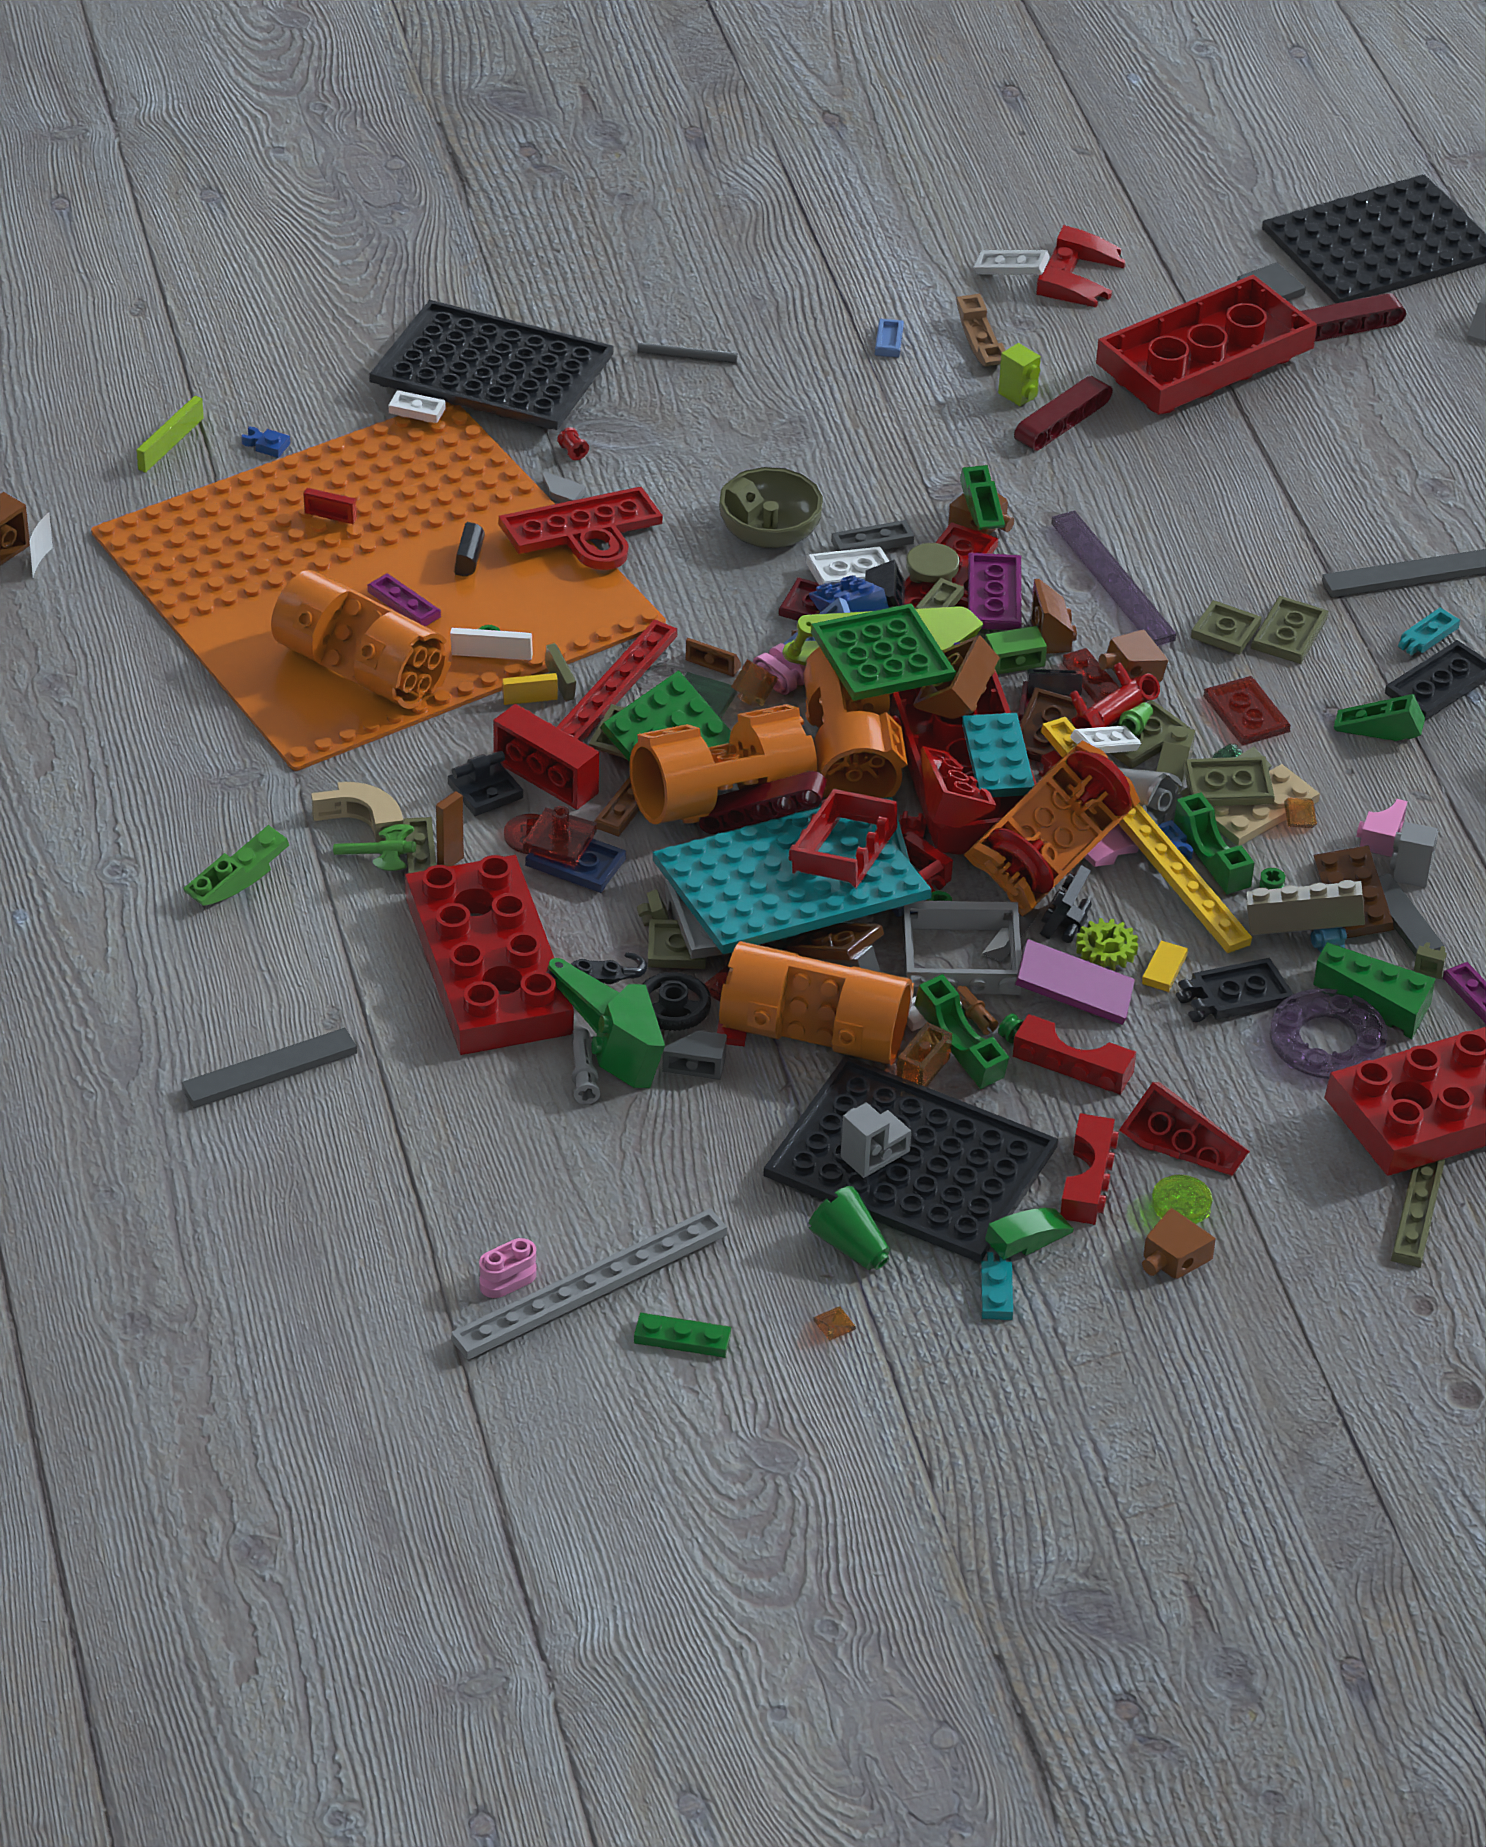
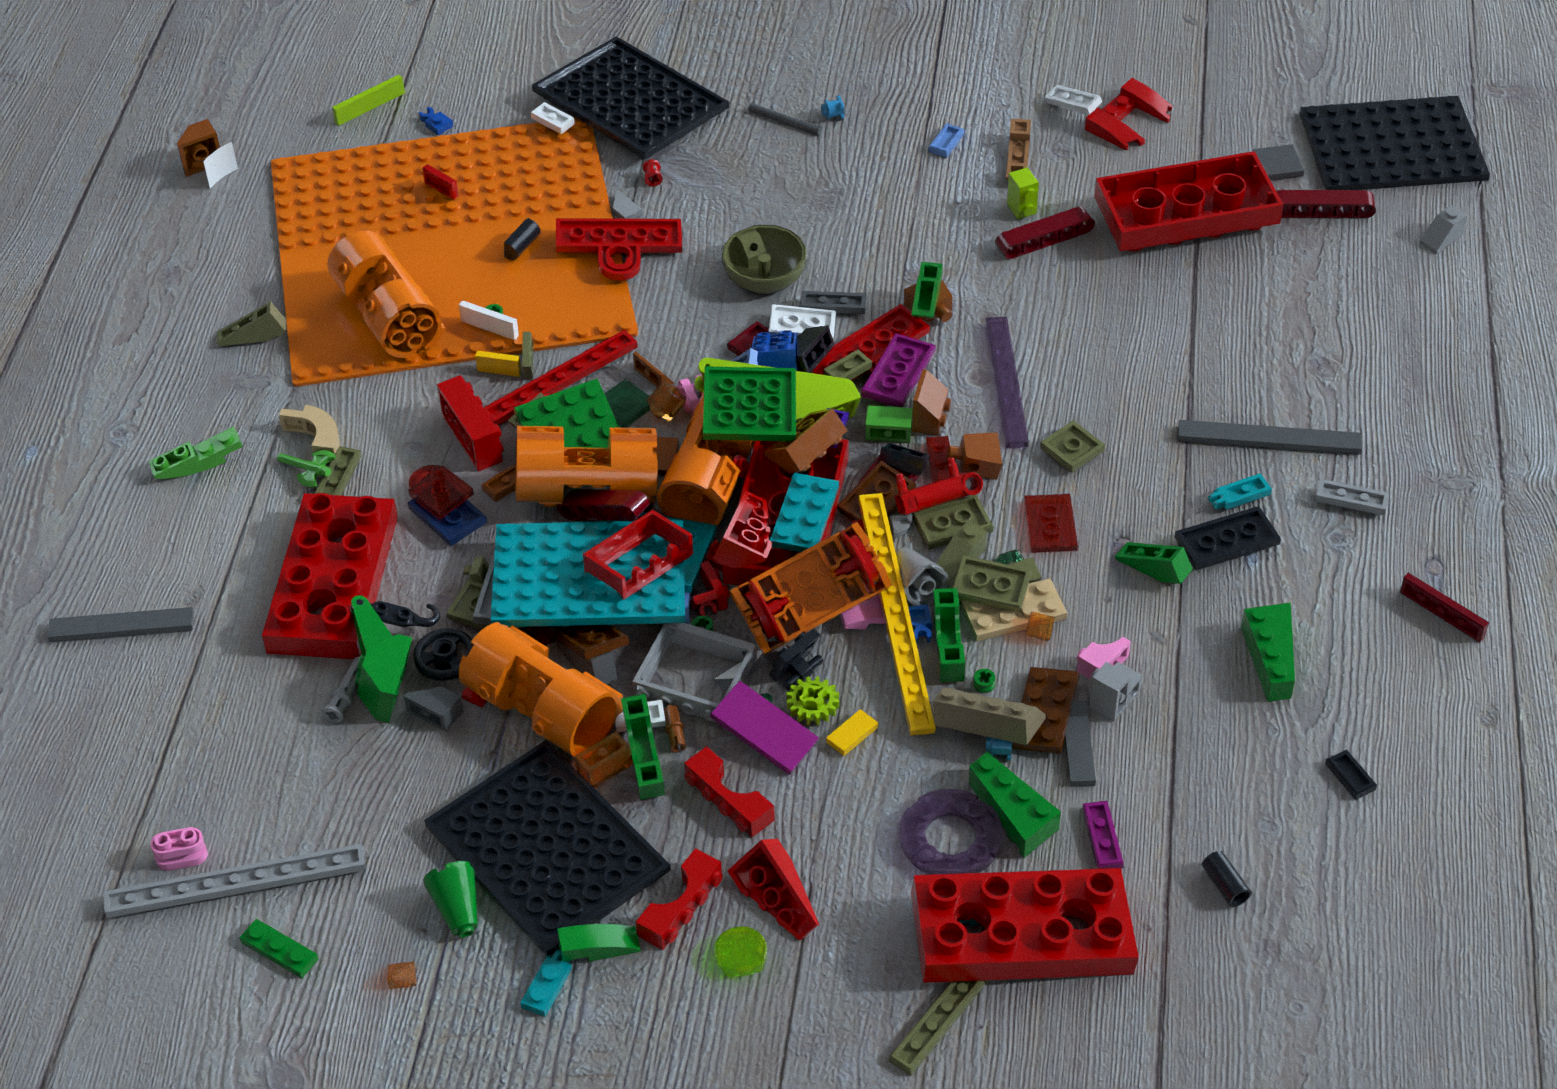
camera: 25 degrees right, 5 degrees up
(208, 716) = (254, 327): none -> olive slope
(403, 600) = (452, 269): magenta tile -> none
(450, 830) = (354, 467): dark orange tile -> none
(485, 783) = (417, 433): black plate -> none
(741, 328) = (833, 108): none -> dark azure brick
(872, 1139) = (511, 825): light grey brick -> none
(931, 562) = (861, 335): olive tile -> none
(1009, 1027) = (691, 749): green bush -> none
(1108, 738) = (906, 521): white tile -> none
(1136, 718) = (945, 509): bright green cone -> none
(1176, 1246) = (709, 993): dark orange torso -> none
(1234, 990) = (896, 770): black tile -> none
(1289, 629) = (1126, 461): olive tile -> none
(1430, 961) = (1073, 792): olive tile -> none

